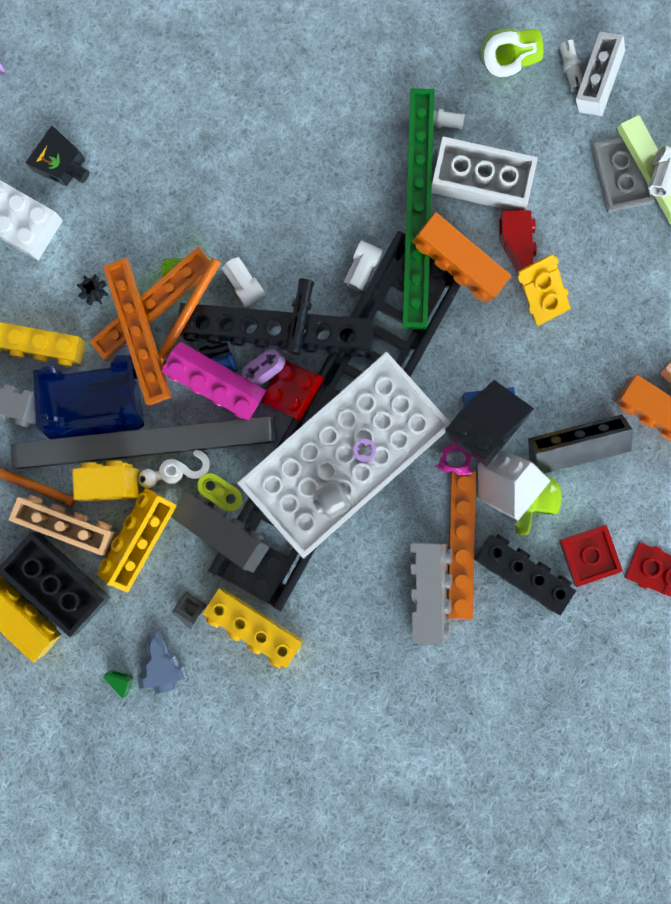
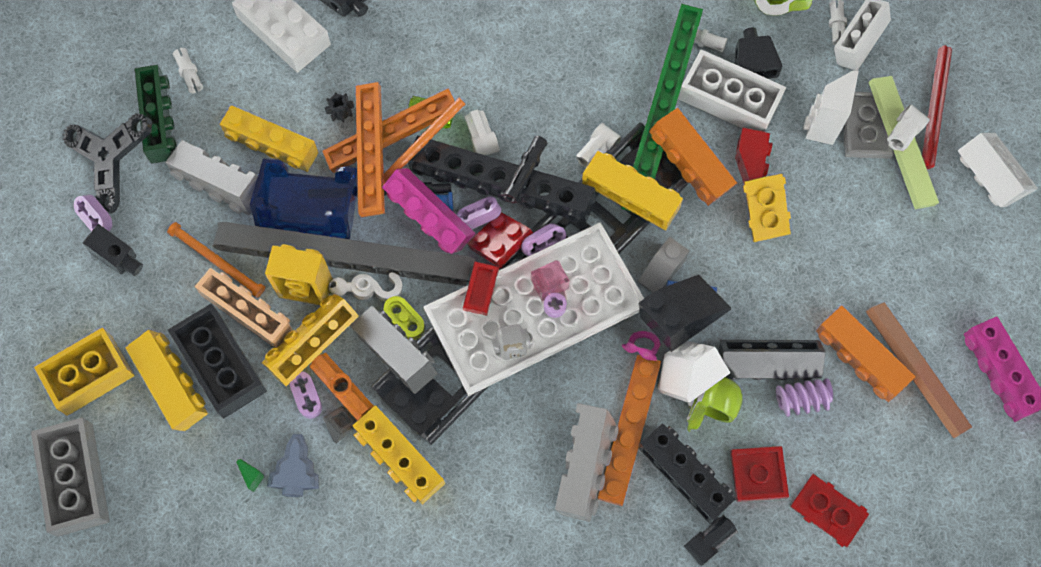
camera: 15 degrees right, 15 degrees down
(154, 588) = (300, 397): none -> lavender beam
(167, 567) = (331, 376): none -> orange piece
(288, 451) = (481, 288): none -> red tile
(335, 382) = (543, 239): none -> lavender beam
(353, 427) = (549, 279): none -> clear pink panel
(410, 311) = (632, 190): none -> yellow brick
(457, 376) = (664, 265): none -> light grey slope
(498, 125) = (758, 54): none -> black torso
(556, 636) = (706, 543): none -> black piece
(590, 171) = (831, 109): none -> white slope
(618, 472) = (805, 396): none -> lavender piece

